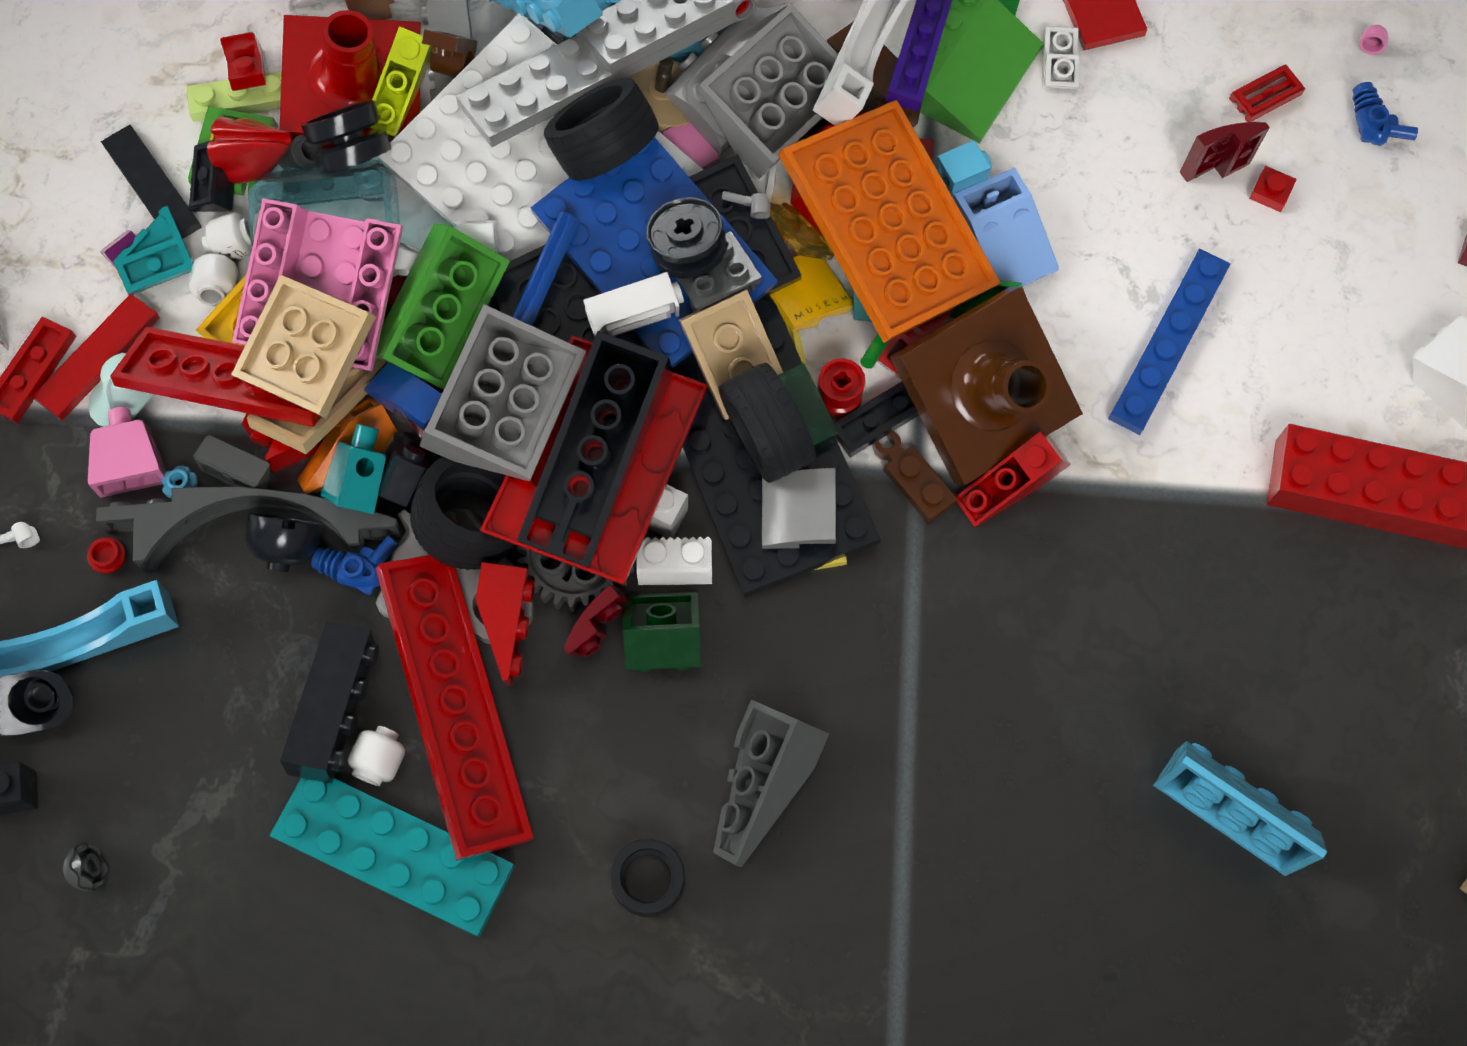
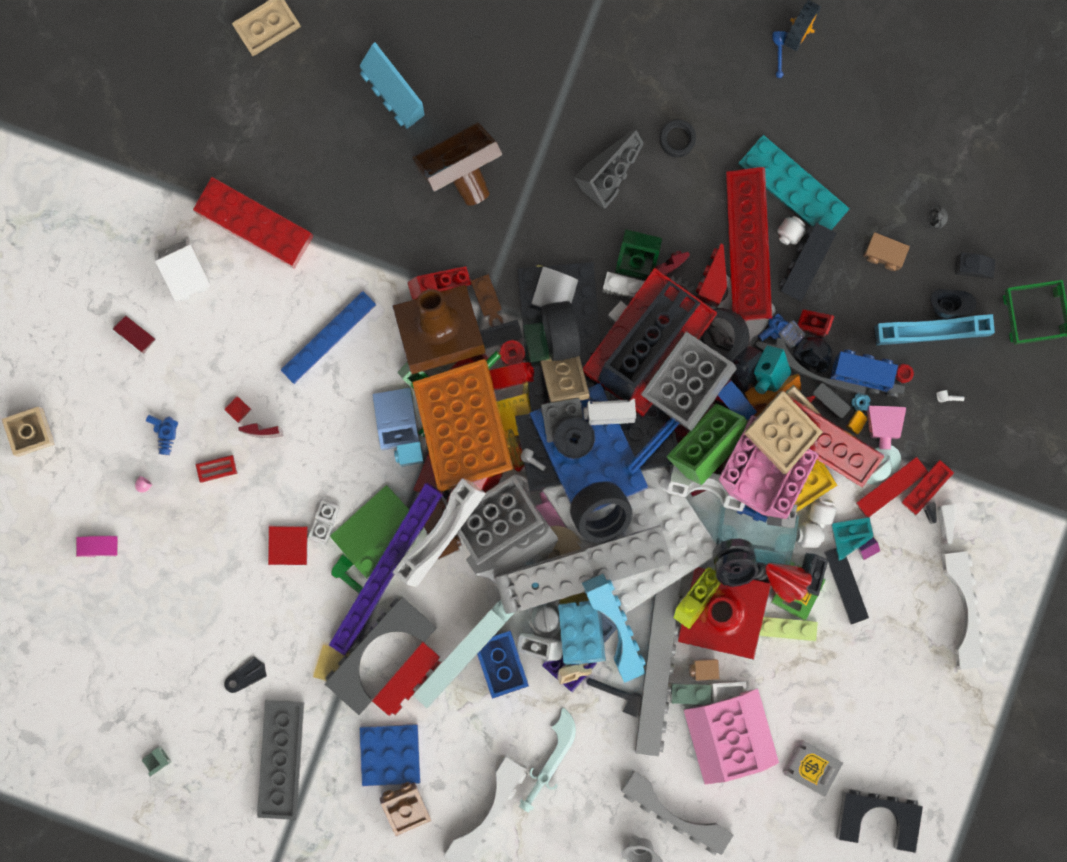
camera: 165 degrees left, 15 degrees up
(14, 328) = (930, 511): none -> black slope
(173, 508) = (864, 370): none -> blue brick
(179, 769) = (886, 252): none -> medium nougat brick
(183, 446) = (857, 422): none -> light orange slope
(244, 61) = (781, 642): red slope -> none
(287, 586) = (815, 323): none -> red slope
(332, 555) = (791, 334): none -> clear tile
(449, 52) = (666, 604): reddish brown plate -> none
(832, 342) = (512, 375): none -> red window
(1064, 690) = (459, 162): none -> reddish brown piece

